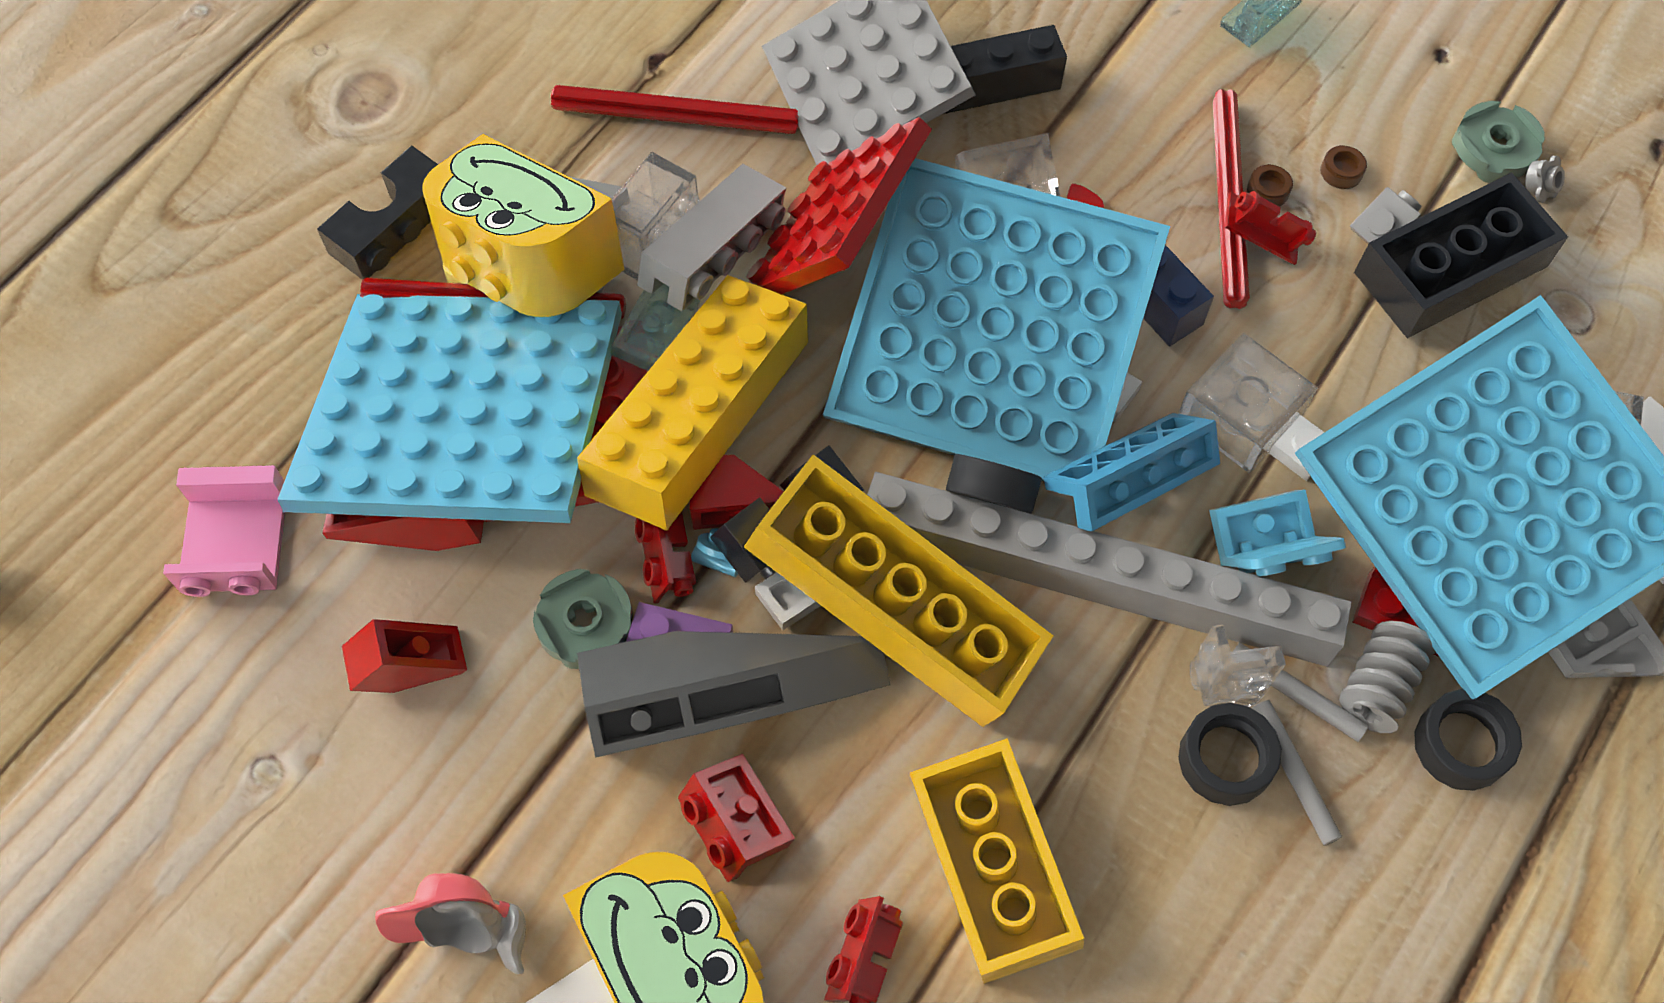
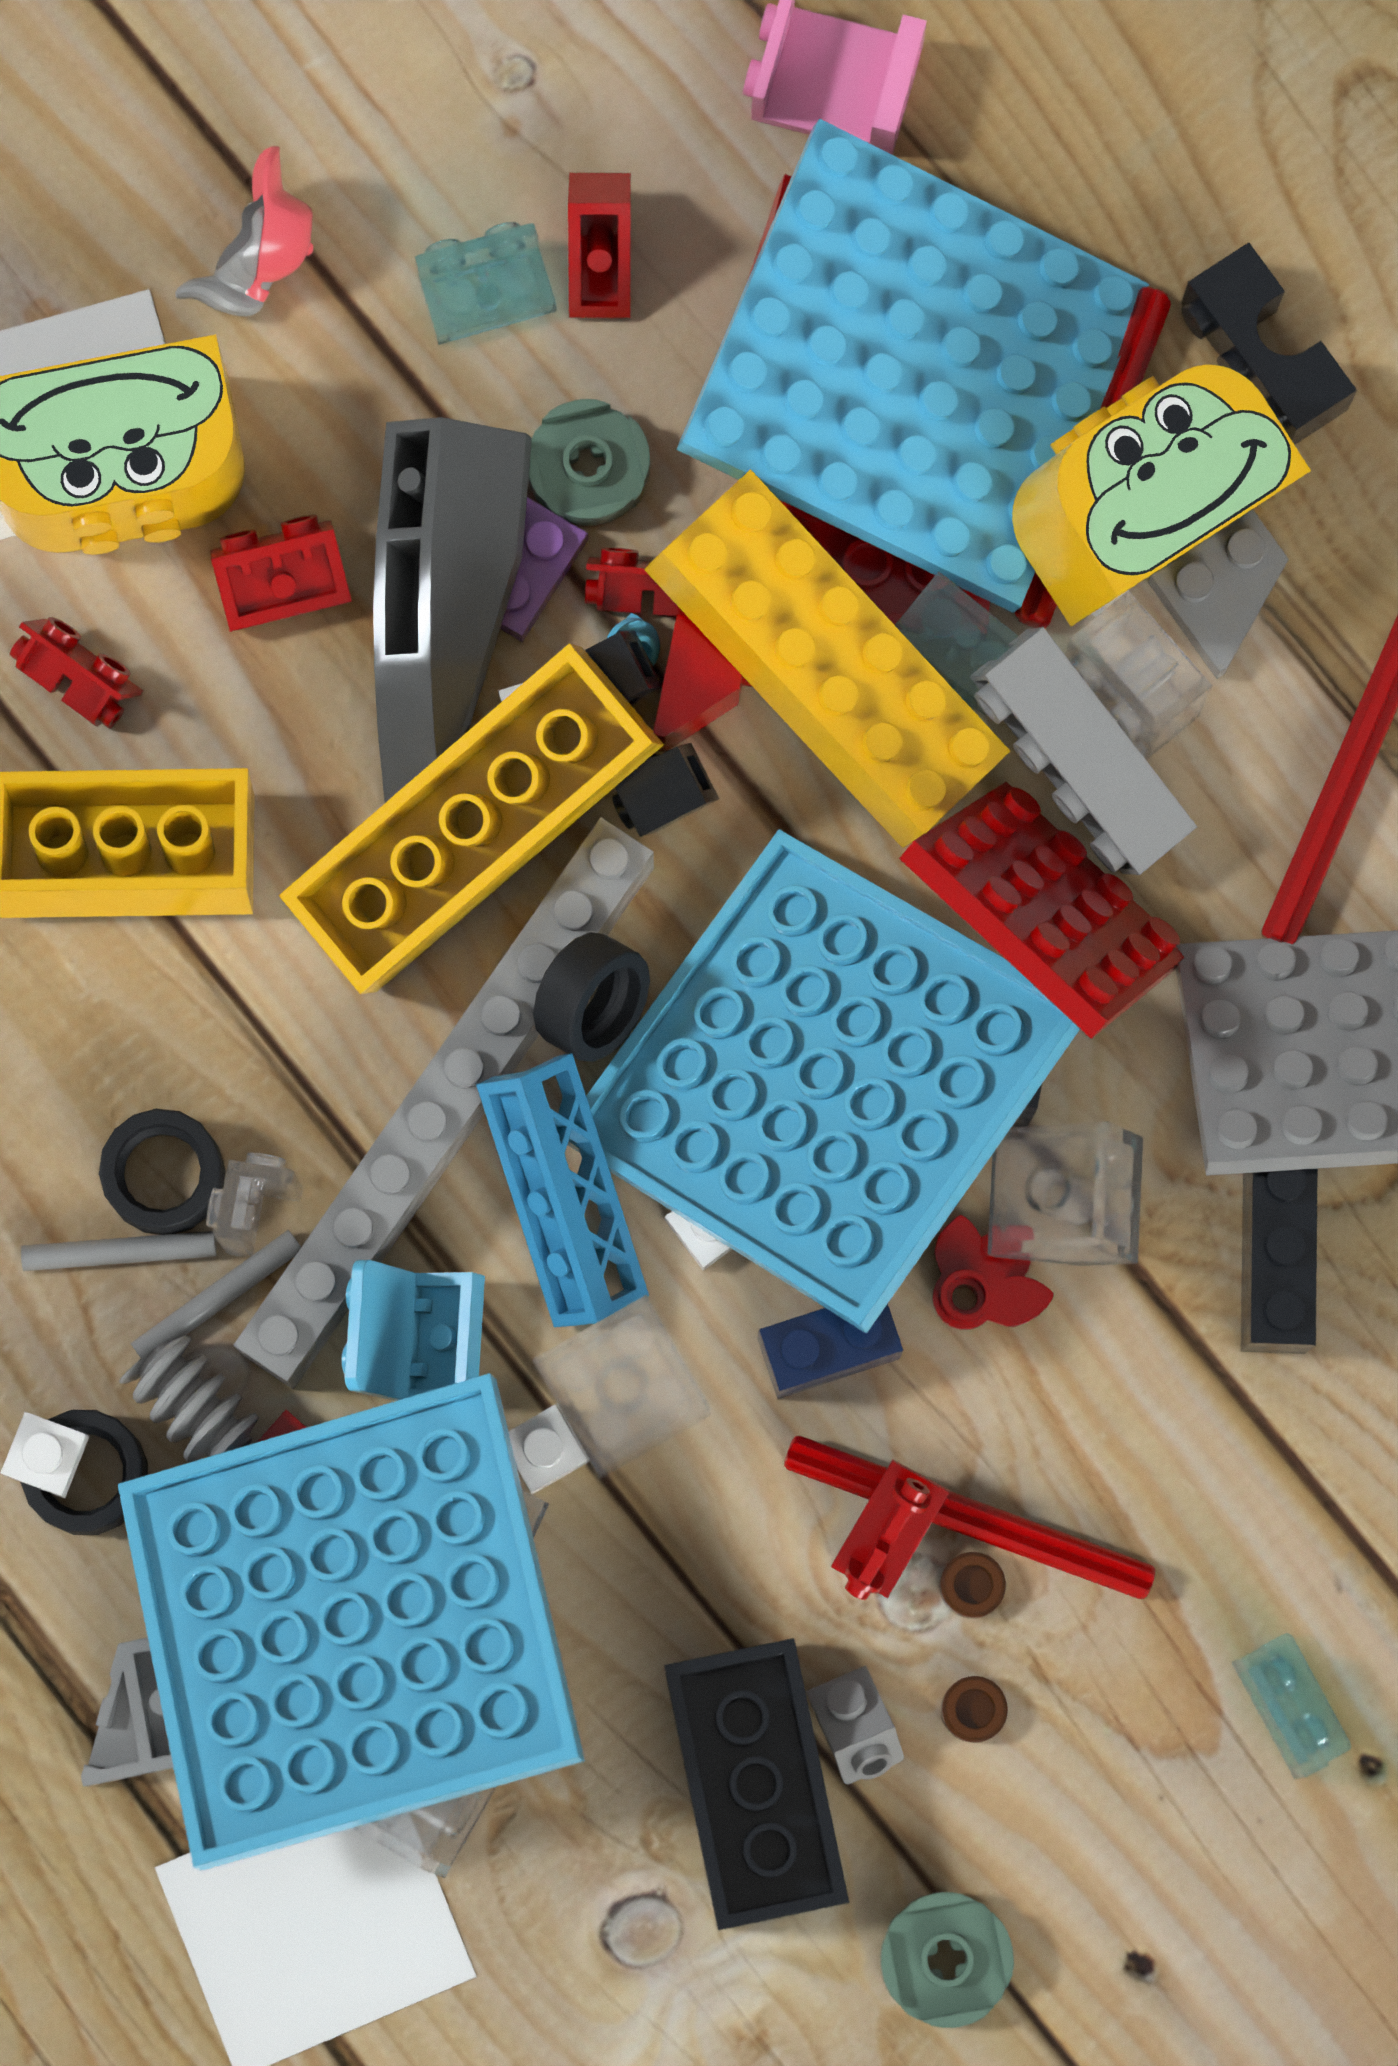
camera: 105 degrees right, 15 degrees up
(456, 734) = (484, 281): none -> clear light blue bracket
(1481, 757) = (44, 1454): none -> white plate
(1545, 178) = (856, 1990): light grey plate -> none

